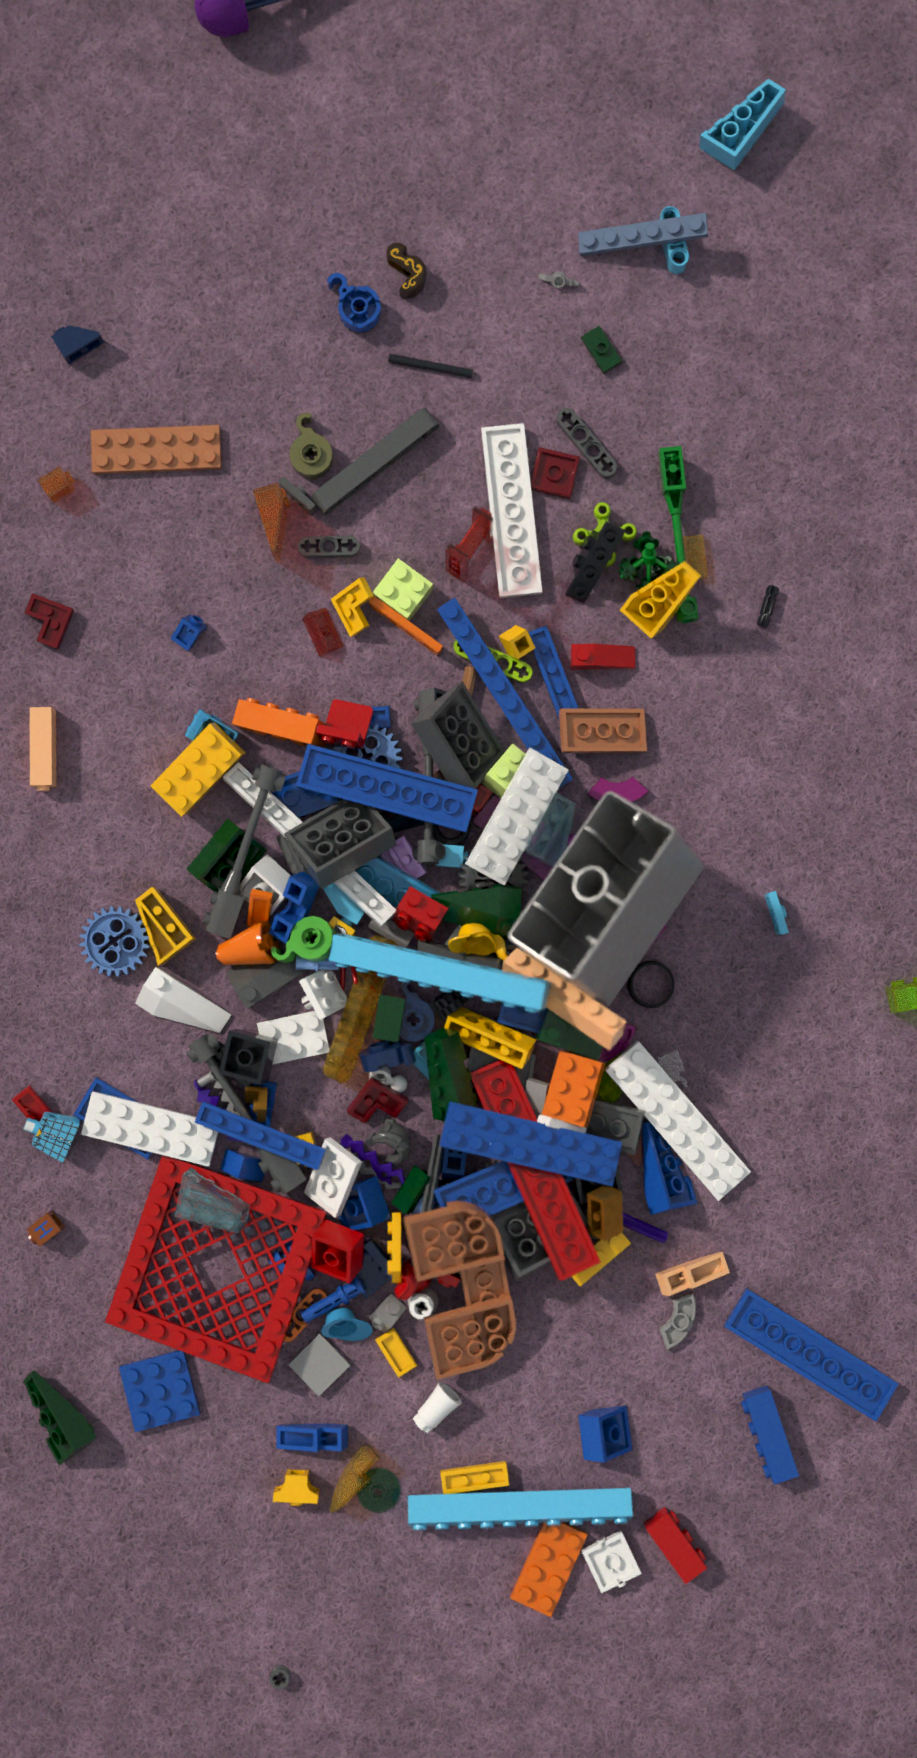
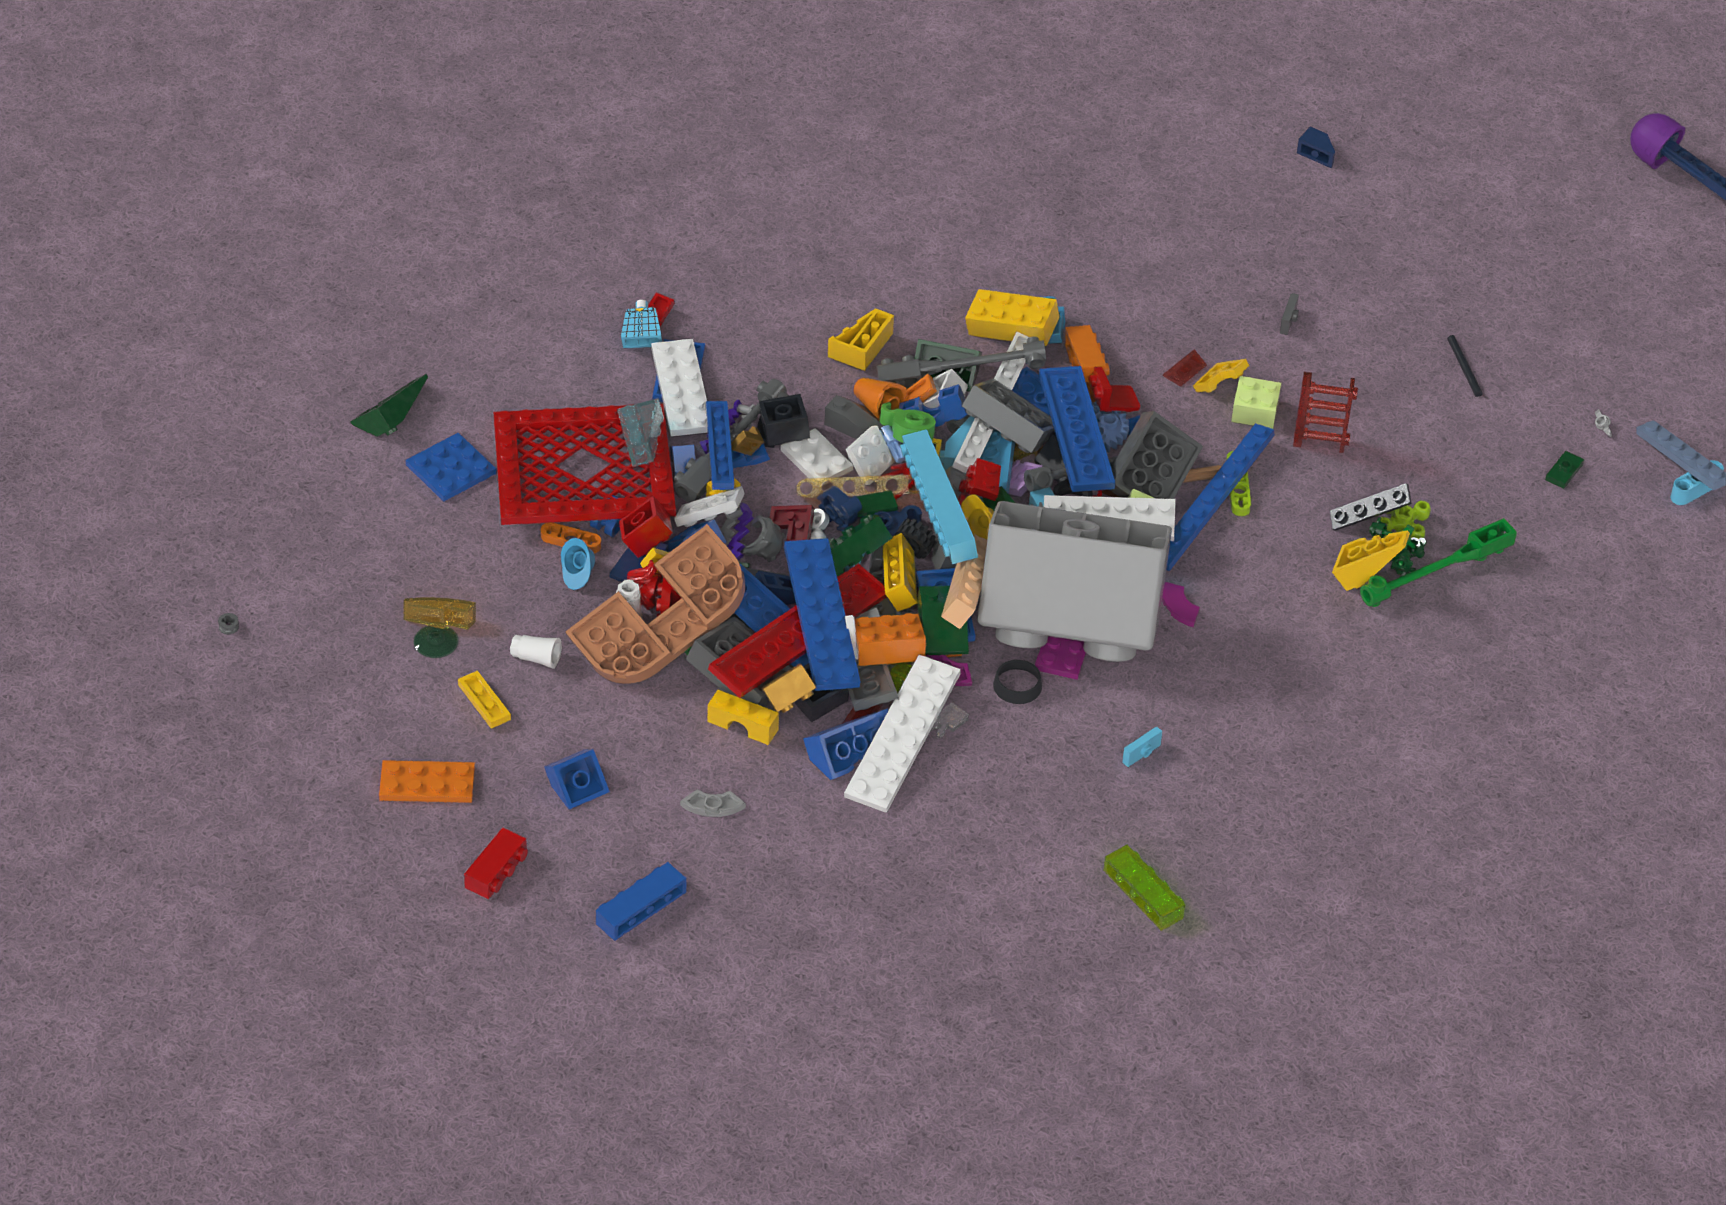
camera: 65 degrees right, 40 degrees down
(42, 748) = (966, 227): light nougat brick -> none
(45, 1228) = (555, 349): dark orange brick -> none
(55, 618) = (1080, 202): dark red plate -> none
(57, 484) = (1192, 170): clear orange brick -> none
(104, 925) = (827, 316): medium blue gear -> none
(156, 449) = (1265, 222): nougat plate -> none
(174, 1000) = (803, 368): white wedge -> none
(188, 631) = (1126, 282): blue bracket -> none
(273, 512) = (1257, 299): clear orange slope -> none
(296, 1489) = (410, 577): yellow brick -> none
(307, 443) = (1333, 311): olive piece -> none
(312, 1437) = (463, 576): blue slope -> none
(319, 1364) = (531, 563): light grey tile -> none
(323, 539) = (1261, 342): dark grey beam -> none
(342, 1295) = (605, 549): blue pin -> none
(352, 297) = (1478, 301): blue piece -> none
(374, 461) = (1355, 352): dark grey beam -> none
(387, 1313) = (601, 589): light grey bracket -> none
(396, 1352) = (571, 612): yellow tile -> none
(406, 626) = (1227, 415): orange tile -> none
(409, 266) = (1535, 328): dark brown animal -> none
(512, 510) = (1377, 453): white plate -> none
(516, 642) = (1264, 485): yellow brick -> none
(519, 1507) = (475, 736): medium azure brick -> none
(552, 670) = (1242, 533): blue plate -> none
(554, 473) = (1432, 473): dark red tile -> none
(588, 442) = (1472, 484): dark grey beam -> none
(601, 656) = (1291, 549): red slope -> none
(602, 730) = (1226, 567): nougat plate -> none
(611, 1561) = (455, 822): white plate -> none
(643, 1228) = (786, 740): dark purple axle -> none
(692, 1273) = (763, 794): light nougat slope -> none
(695, 554) = (1428, 589): clear yellow plate -> none
(767, 606) = (1421, 654): black axle -> none
(811, 1354) = (735, 911): blue plate -> none

